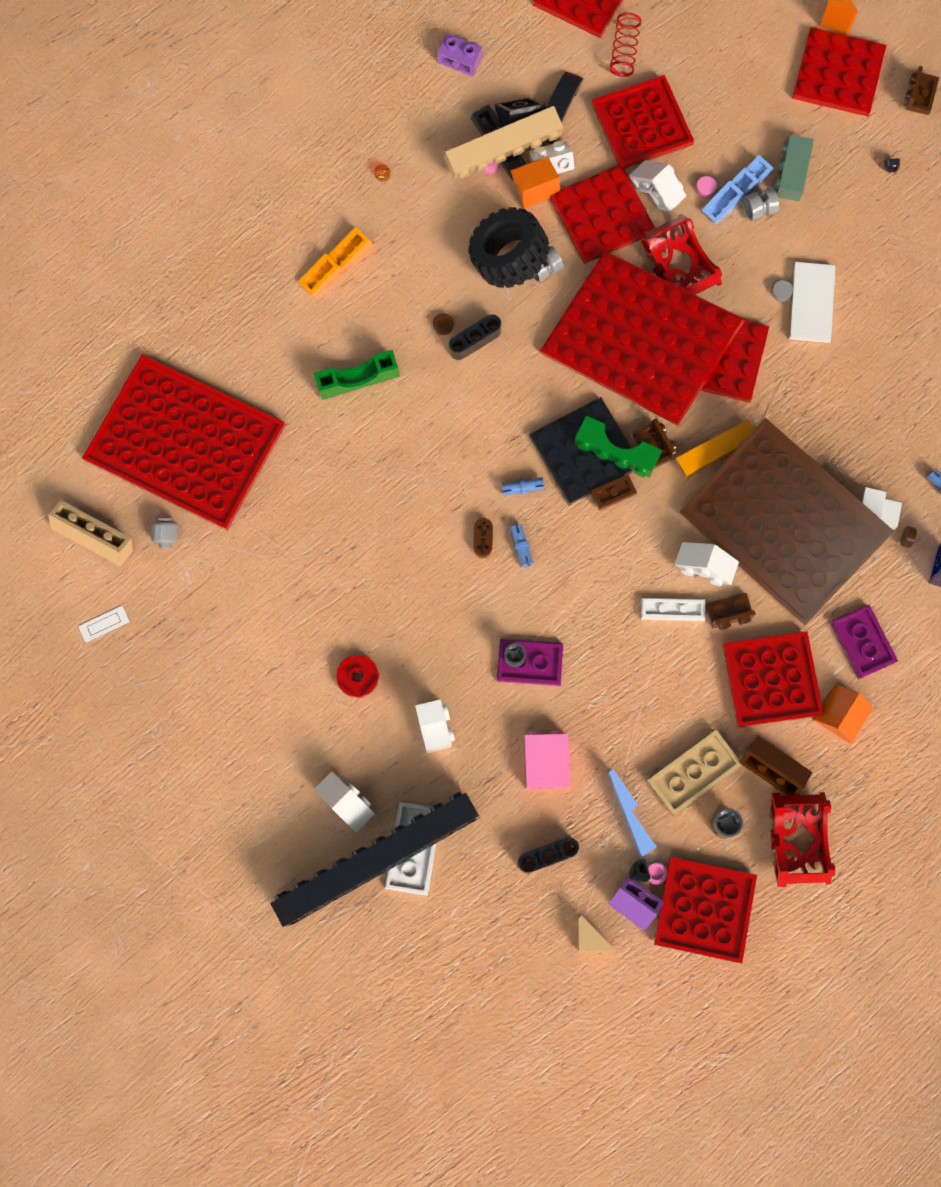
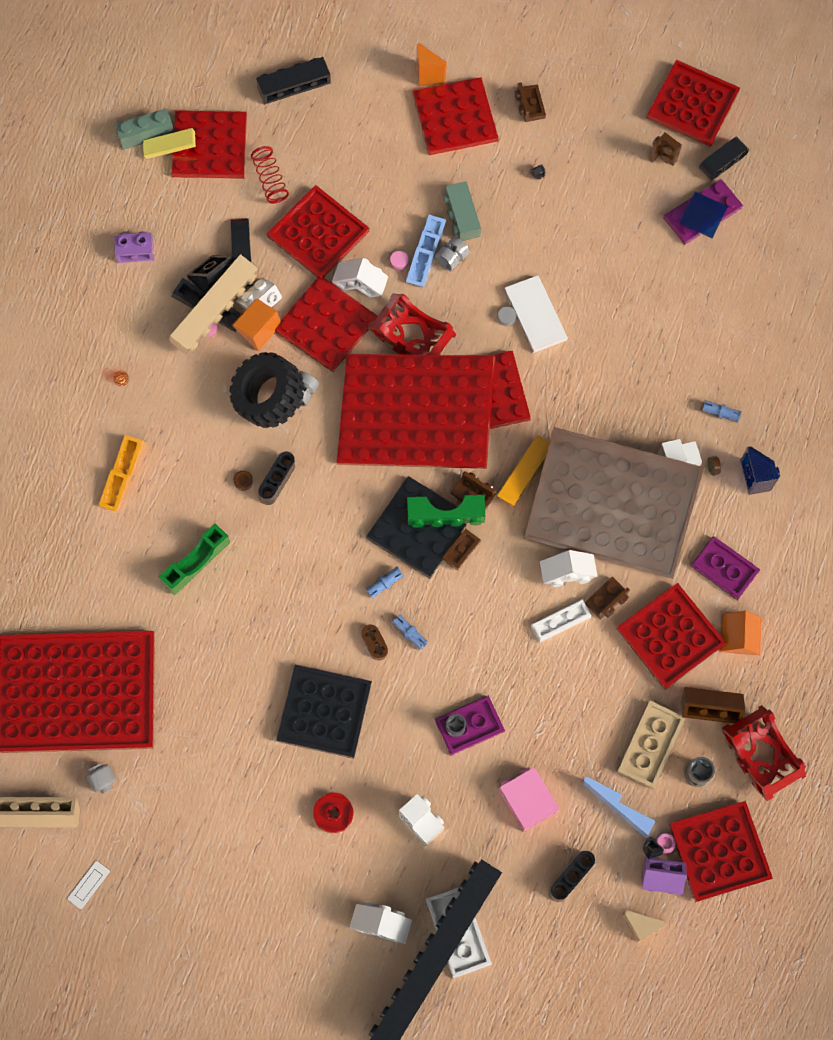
camera: 35 degrees left, 5 degrees down
(400, 578) = (324, 711): none -> black plate

